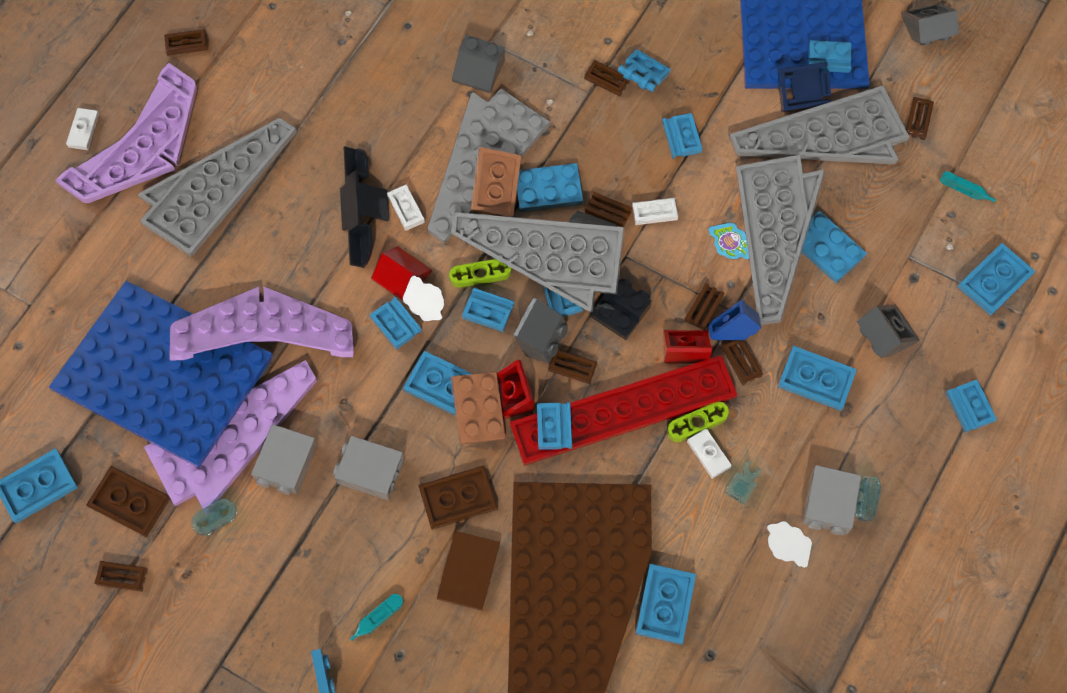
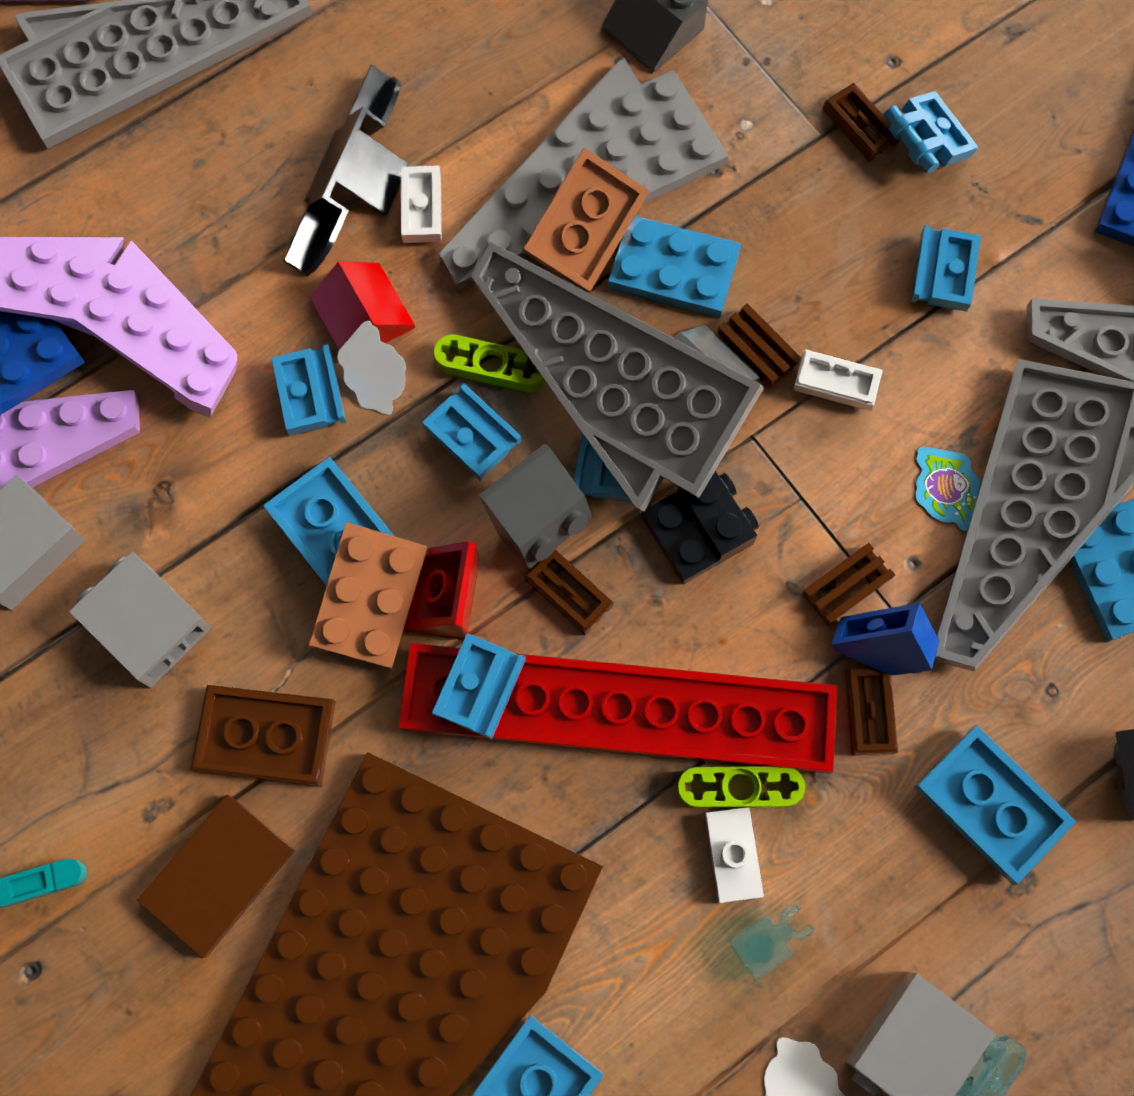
camera: 25 degrees right, 5 degrees up
(686, 346) = (783, 641): red slope -> none

